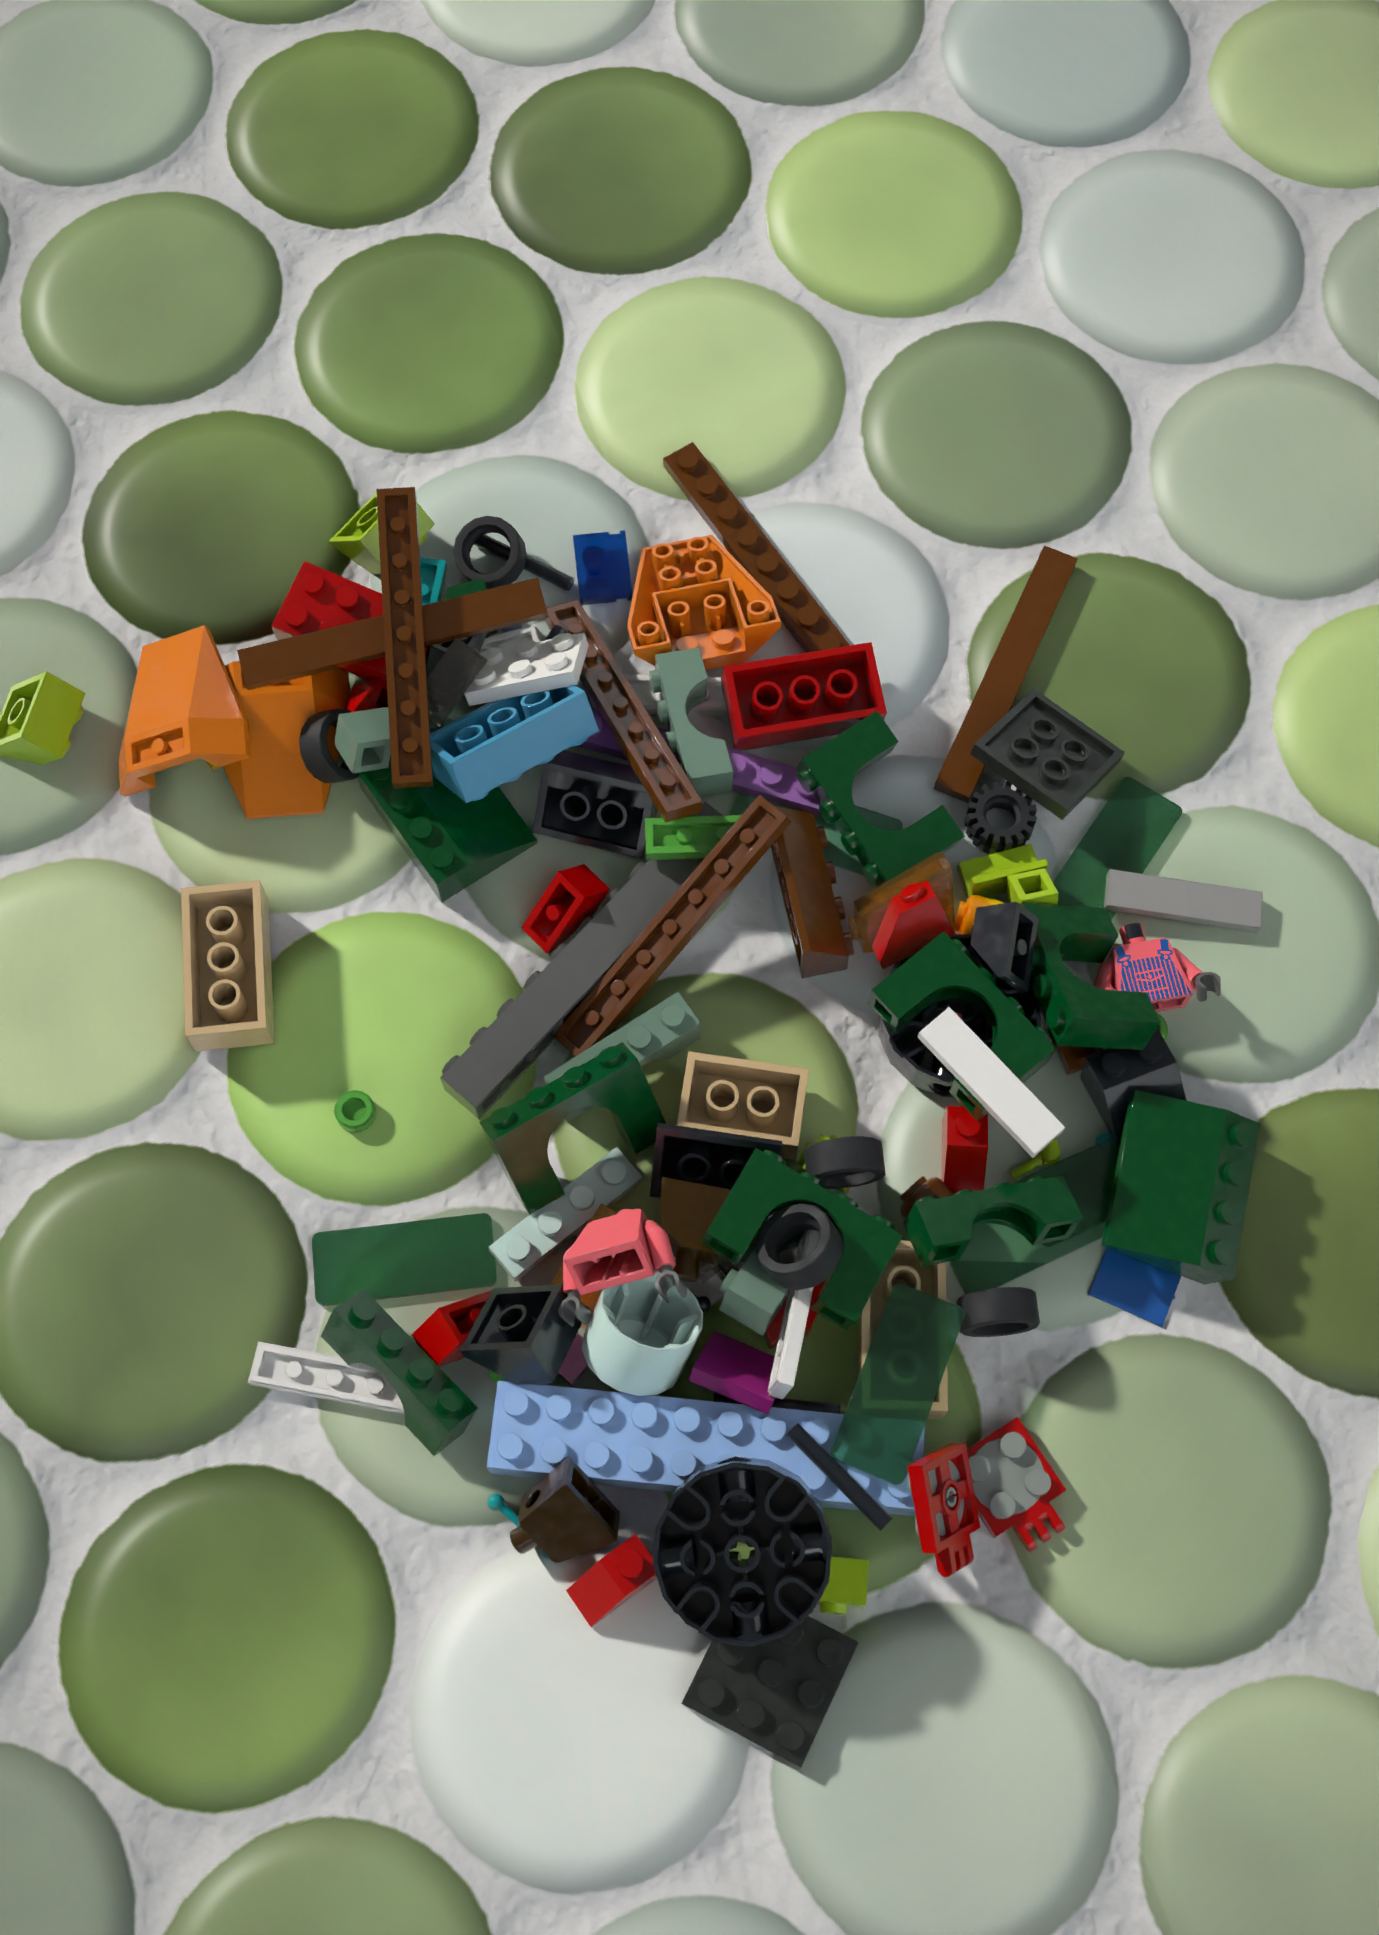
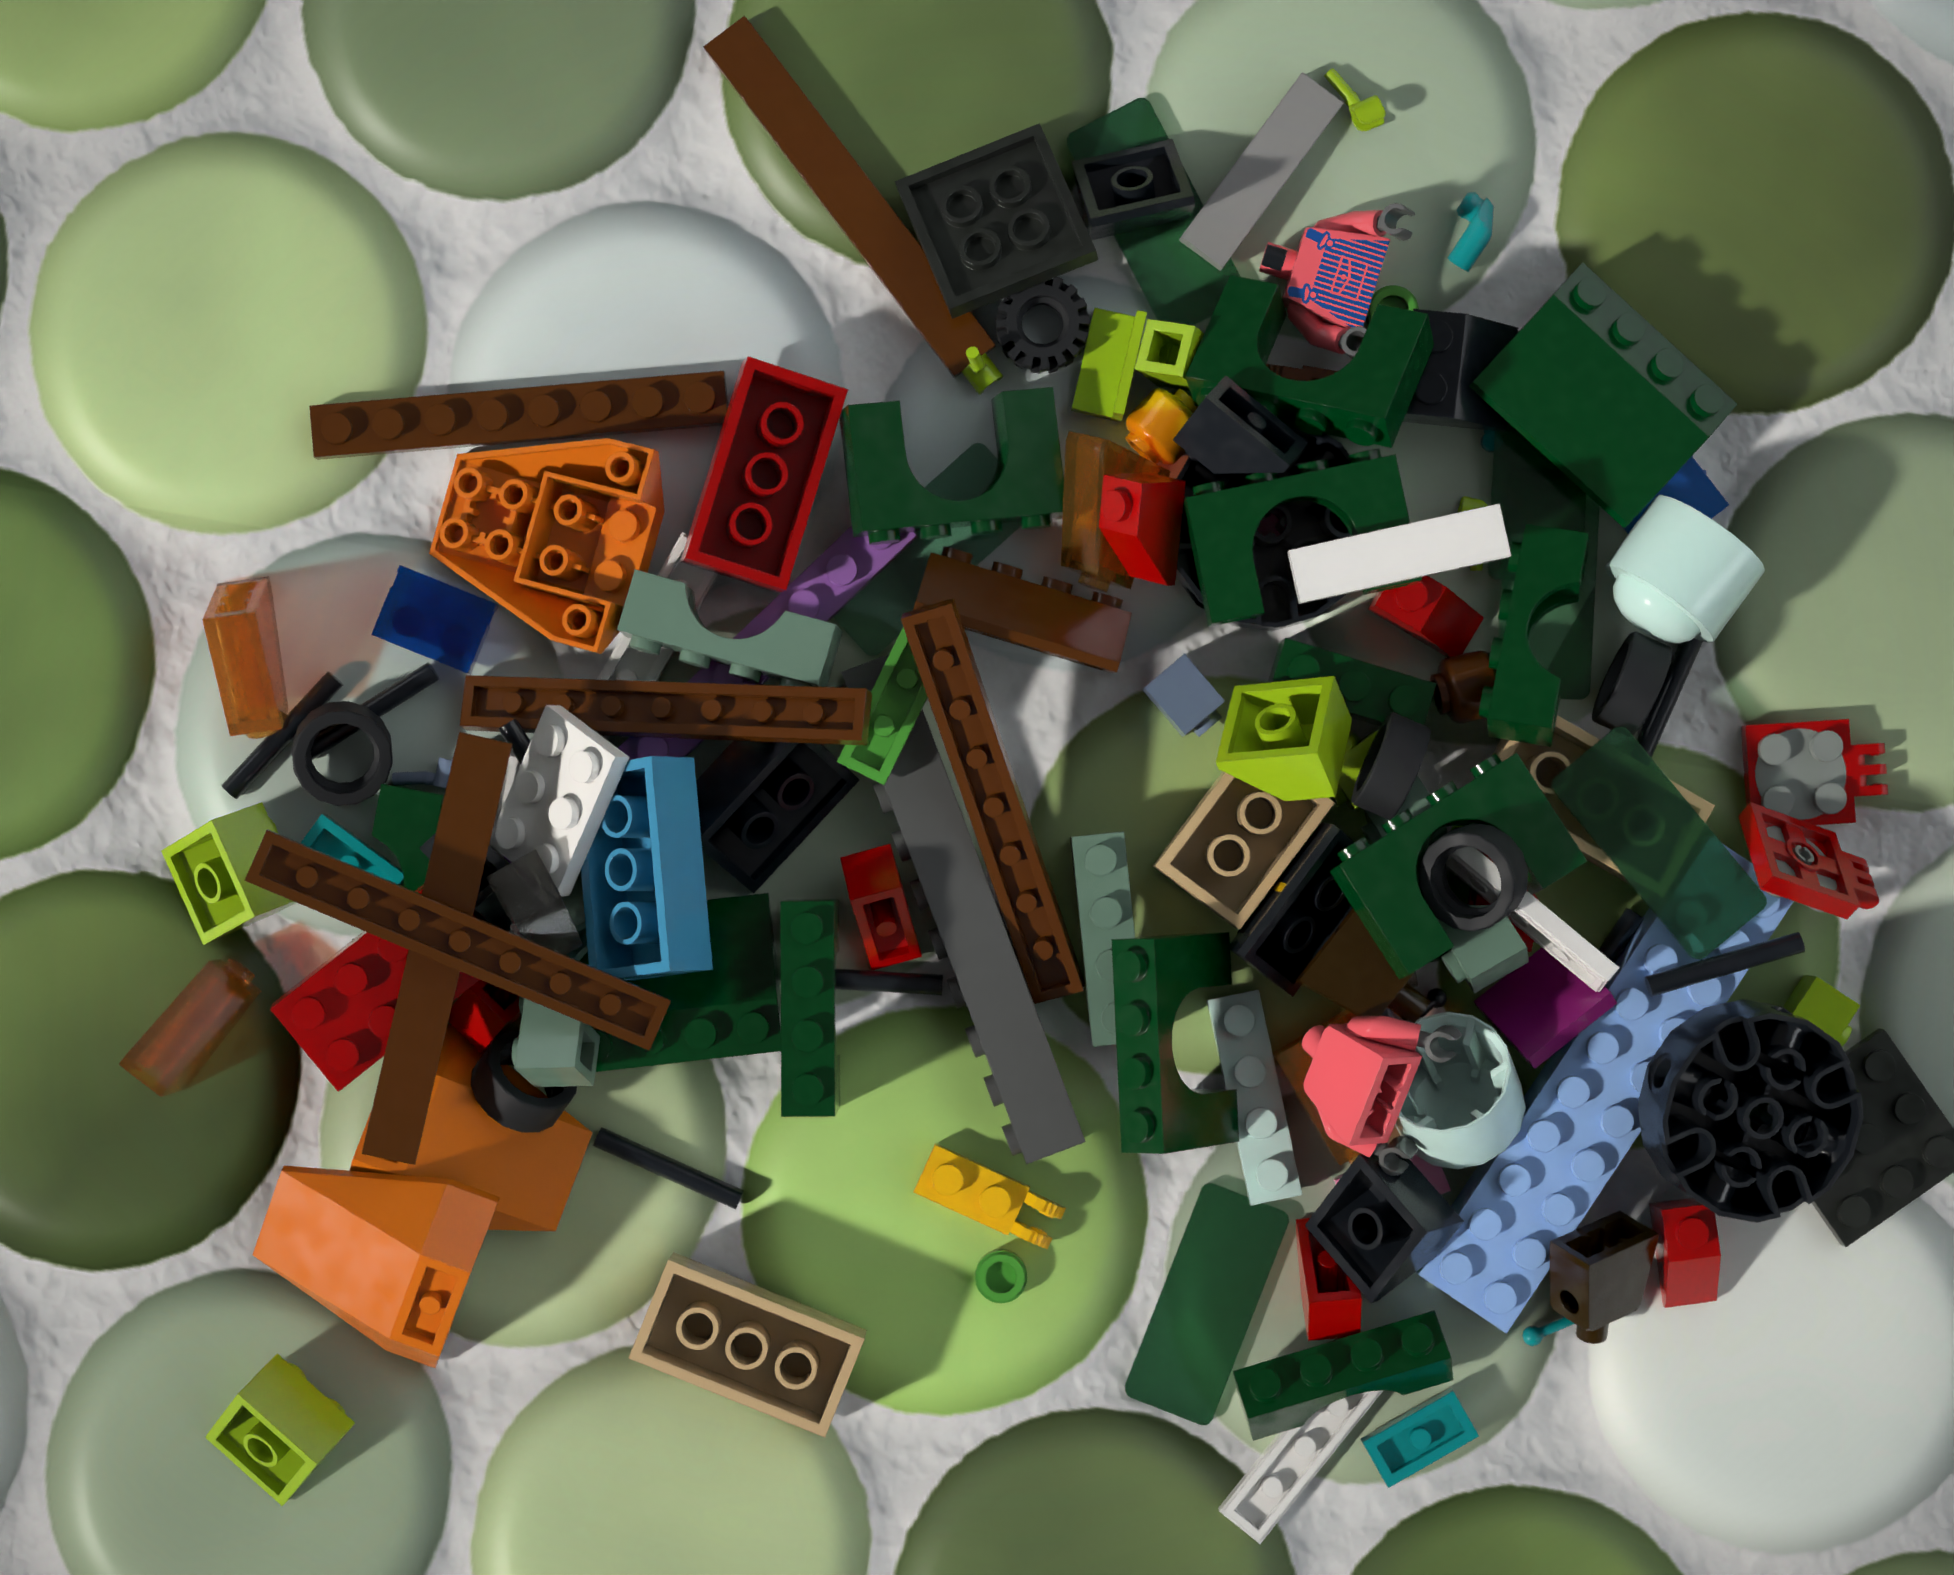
camera: 65 degrees left, 20 degrees up
(266, 548) = (192, 1027): none -> clear orange slope
(323, 869) = (668, 1168): none -> black bar
(380, 1455) = (1419, 1437): none -> teal plate
(405, 1071) = (983, 1194): none -> yellow hinge
(432, 896) = (808, 1008): none -> dark green arch
(463, 517) = (275, 743): none -> black bar
(510, 924) = (889, 981): none -> black bar
(519, 475) = (247, 656): none -> clear orange slope
(813, 1025) = (1185, 697): none -> sand blue brick
(824, 1088) = (1287, 737): none -> lime slope
(882, 1118) = (1366, 688): none -> dark green brick
(948, 795) = (981, 370): none -> lime hand
(1009, 1352) = (1668, 695): none -> black bar
(1094, 1301) = (1681, 573): none -> light aqua piece
(1117, 827) = (1133, 189): none -> black slope
(1230, 1055) = (1478, 232): none -> teal arm
(1264, 946) = (1365, 113): none -> lime hand

